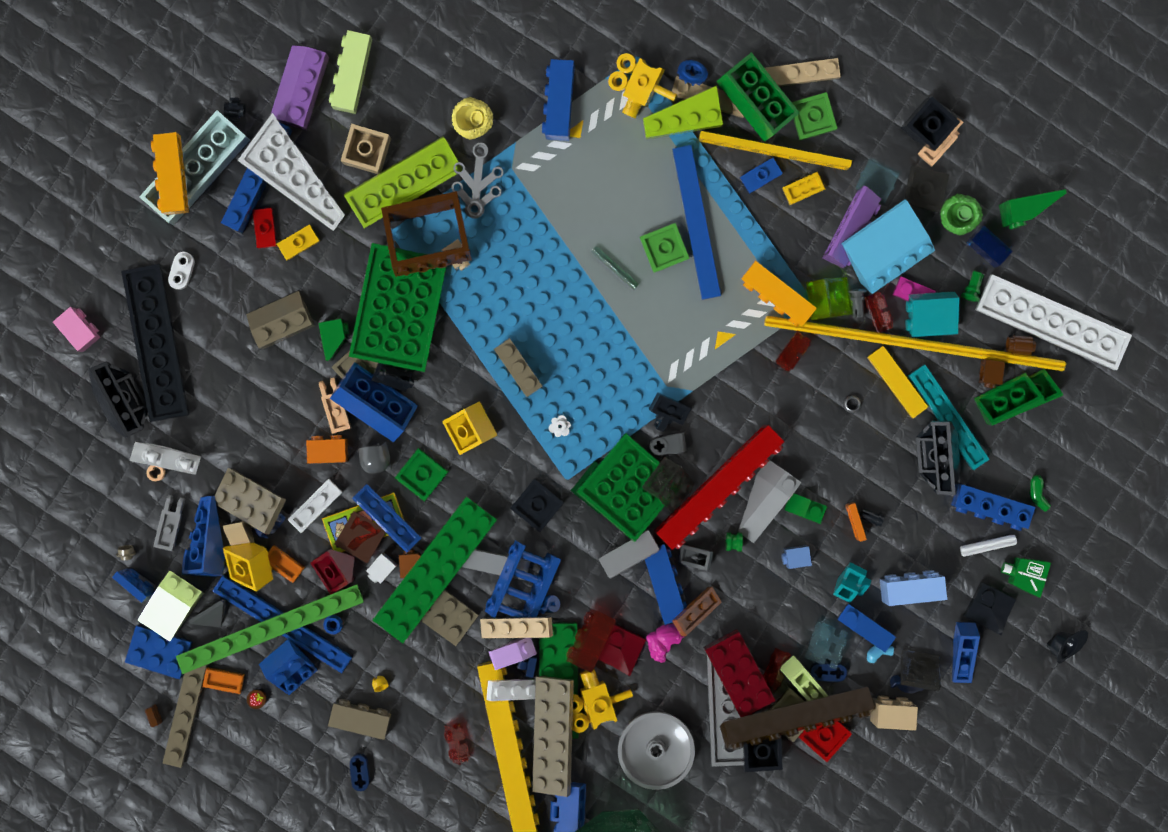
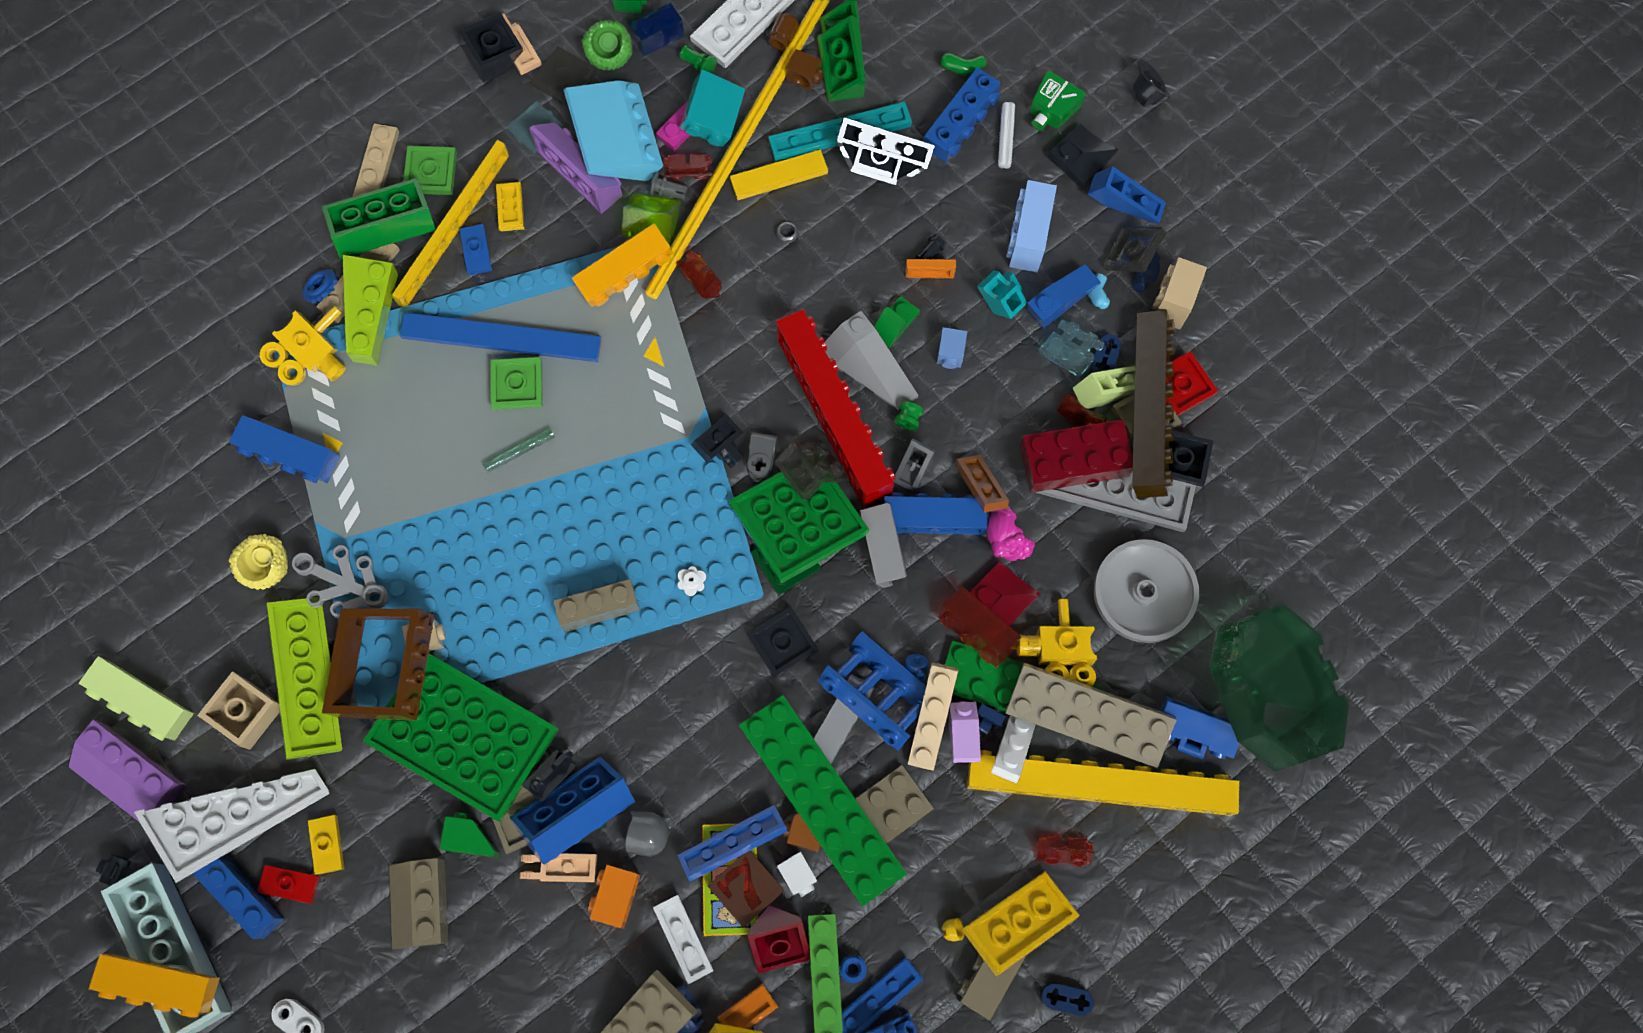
camera: 80 degrees left, 15 degrees down
(396, 728) = (1020, 923): none -> yellow tile
(421, 474) = (691, 780): green tile -> none
(469, 428) = (652, 696): yellow slope -> none

